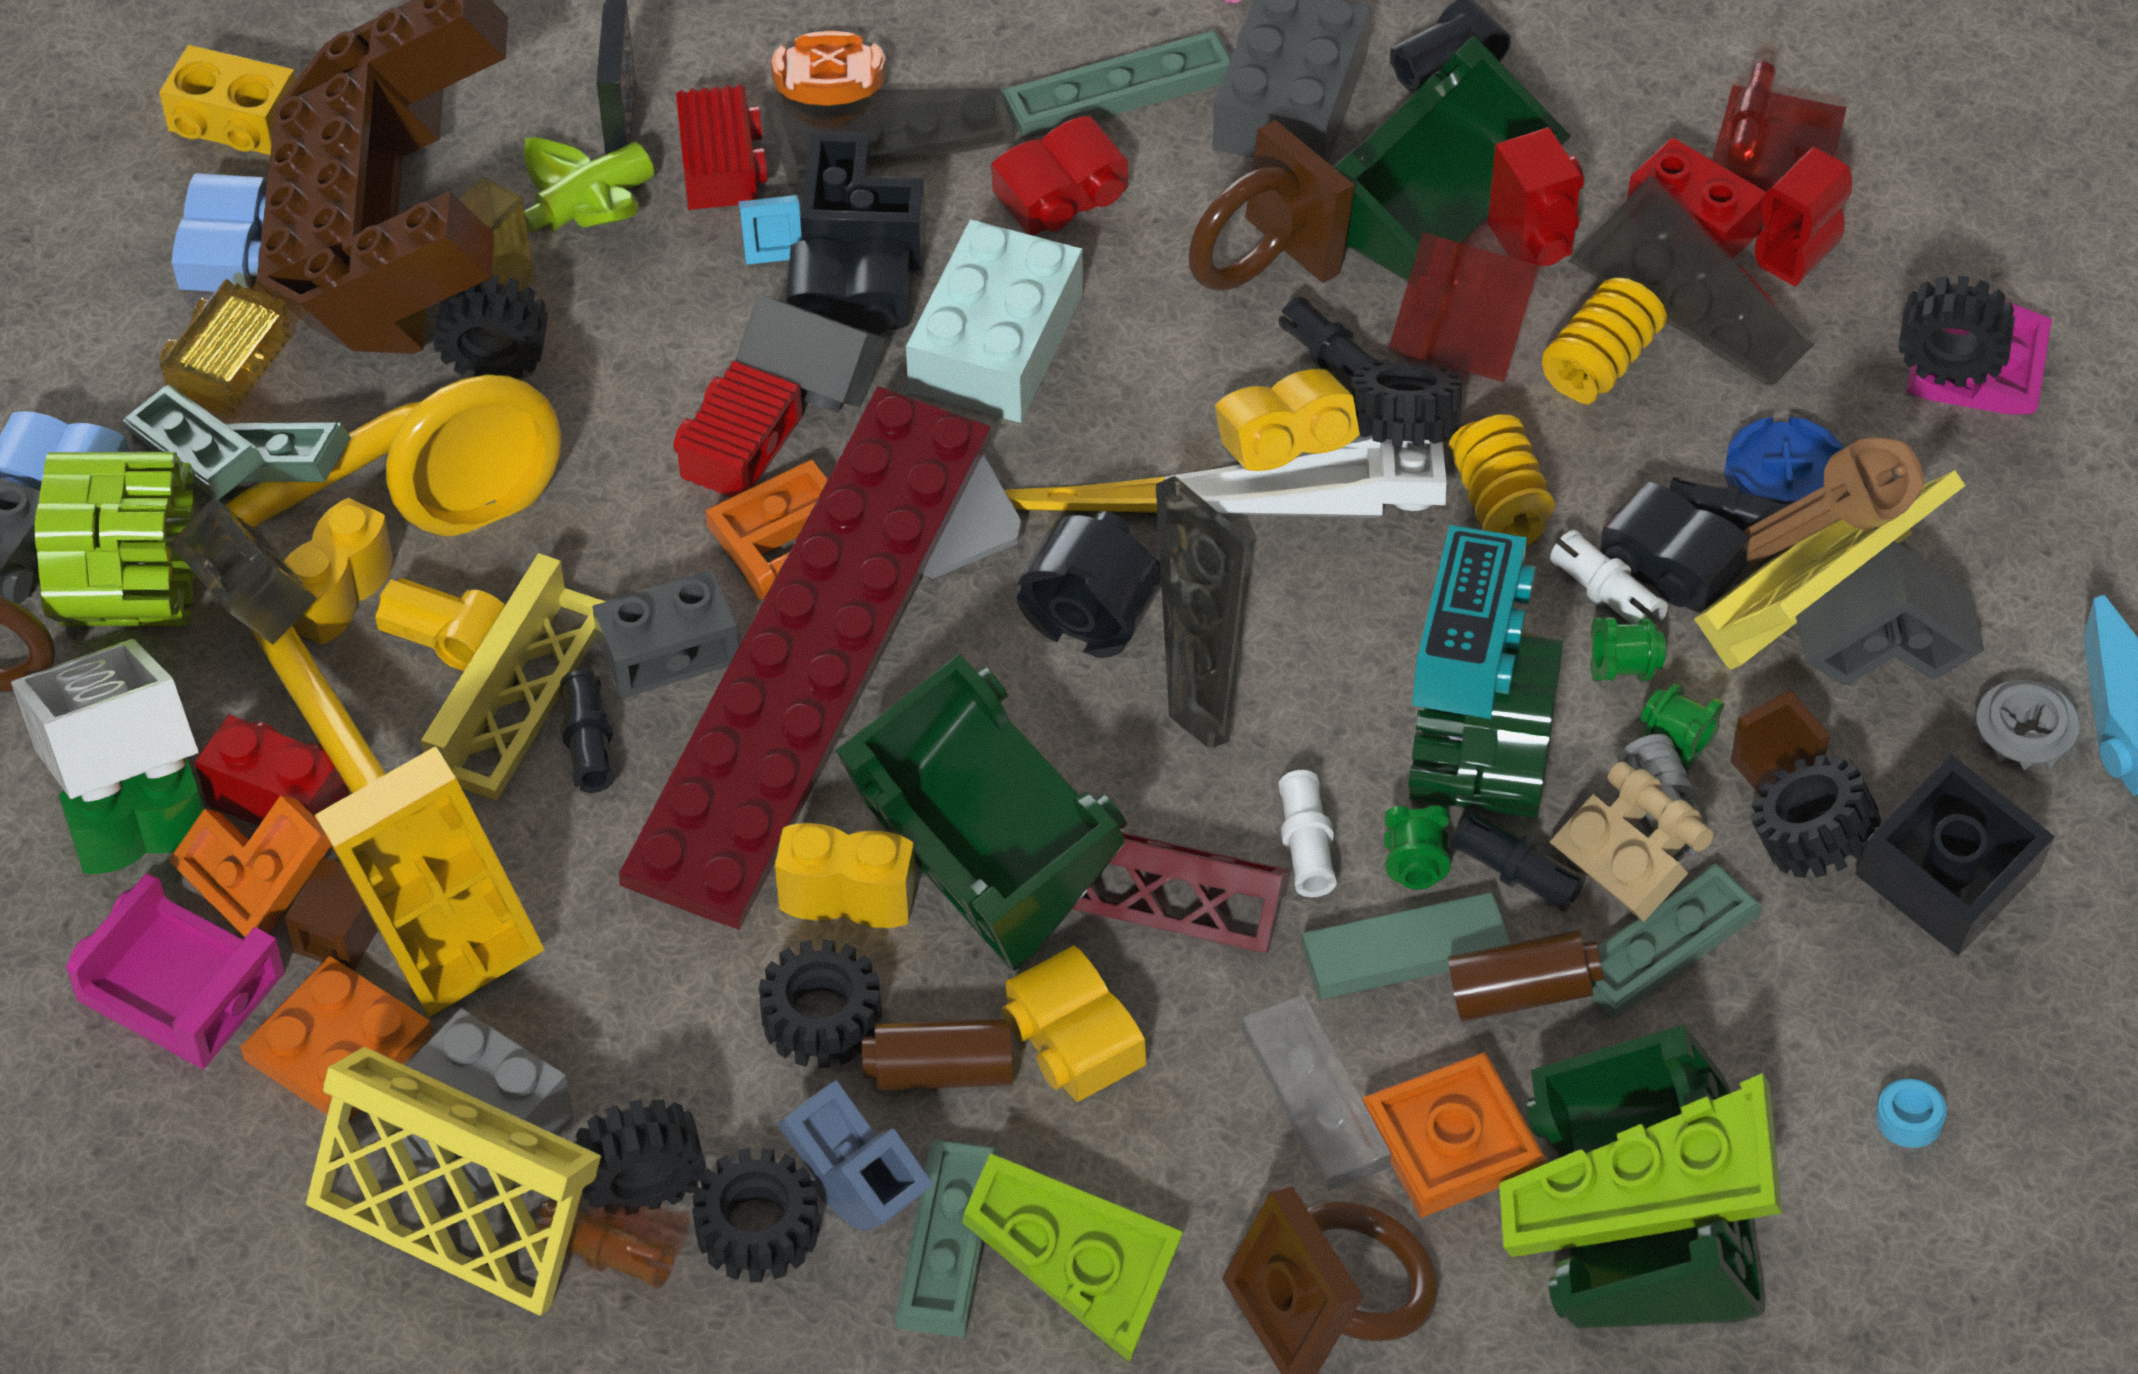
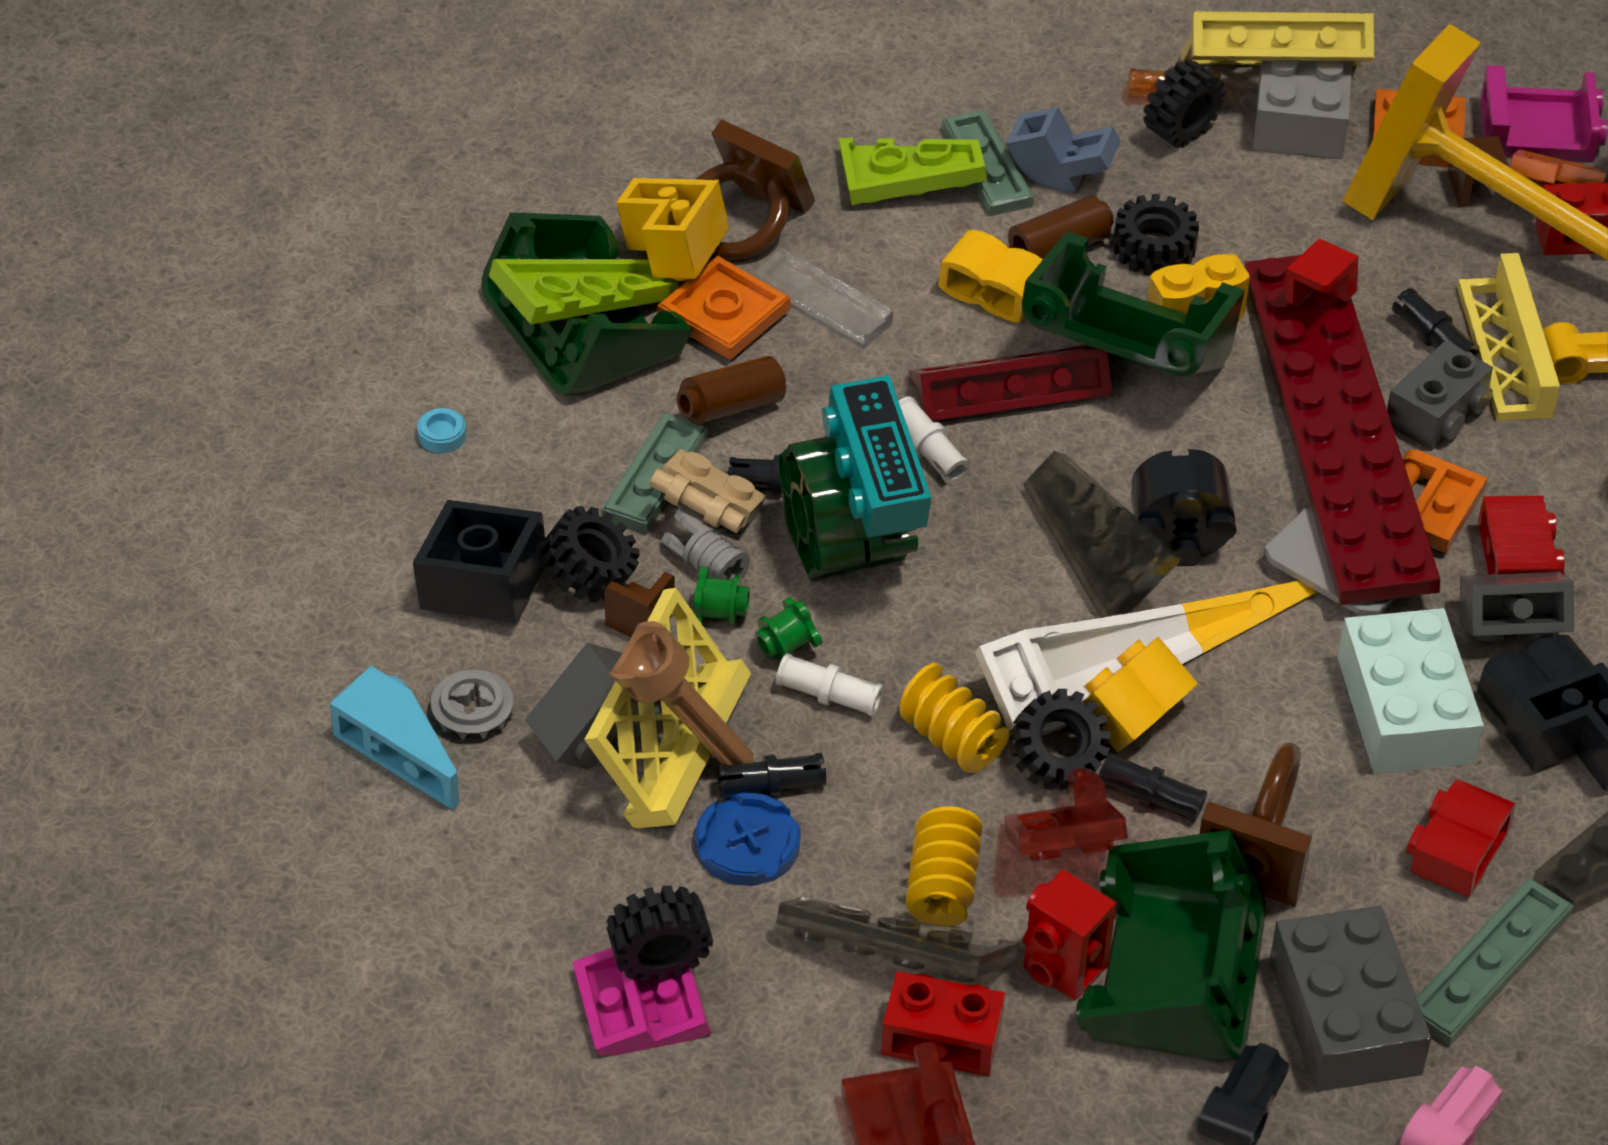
camera: 150 degrees right, 5 degrees down
(704, 777) = (1323, 269): none -> red panel
(762, 1248) = (1106, 107): black tyre -> none
(1400, 945) = (801, 415): sand green tile -> none
(1459, 1228) = (674, 222): none -> yellow brick
(1675, 546) = (796, 721): black brick -> none
(1803, 216) = (840, 1011): red brick -> none

